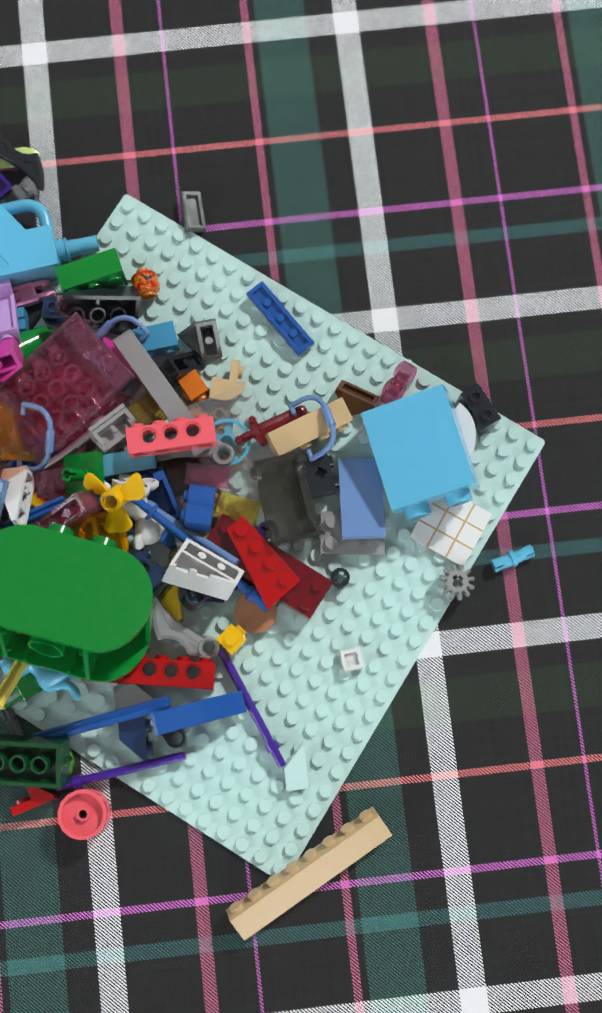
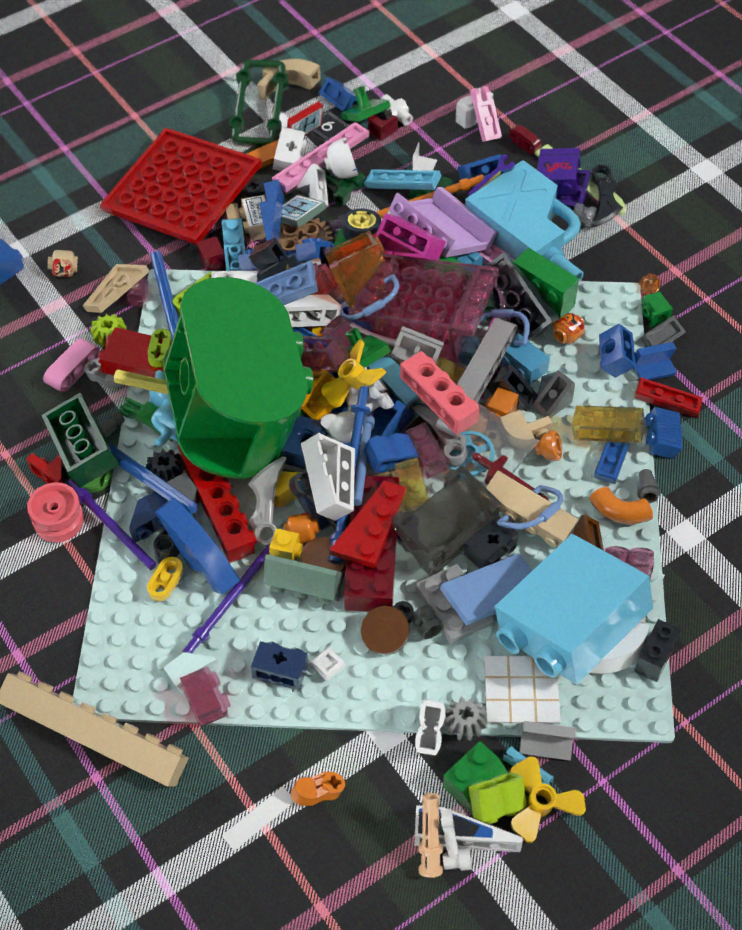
camera: 65 degrees right, 25 degrees down
(97, 704) = (165, 464): none -> black gear
(133, 187) = (650, 283): none -> clear orange plate
(164, 199) = (656, 309): none -> green brick
(204, 750) = (163, 580): none -> yellow plate
(206, 261) = (617, 350): none -> blue brick
(219, 239) = (655, 361): none -> blue panel
(219, 616) = (304, 525): none -> orange head
(255, 373) = (550, 446): none -> orange brick
(256, 249) = (668, 397): none -> red tile
(263, 315) = (608, 424): none -> clear yellow brick
(271, 639) = (302, 579): none -> sand green slope
(290, 276) = (663, 432): none -> blue brick
(330, 770) = (204, 696): none -> clear pink brick
(336, 323) = (647, 486): none -> dark grey cone
(346, 357) = (618, 510): none -> orange cylinder
(347, 691) = (279, 665): none -> dark blue brick
(350, 600) = (385, 630): none -> reddish brown tile
(360, 564) = (427, 622): none -> pearl dark grey wheel
(444, 775) = (258, 818): none -> white sticker
(450, 711) = (315, 789): none -> orange piece
(451, 612) = (431, 720): none -> white brick
(500, 531) = (547, 740): none -> light grey panel
(505, 600) = (476, 766): none -> green slope
(528, 645) = (471, 834): none -> white slope
(529, 595) = (497, 797): none -> lime brick
(541, 664) = (430, 846): none -> light nougat pin
(552, 649) = (455, 857): none -> white brick
(553, 546) = (527, 821): none -> yellow piece

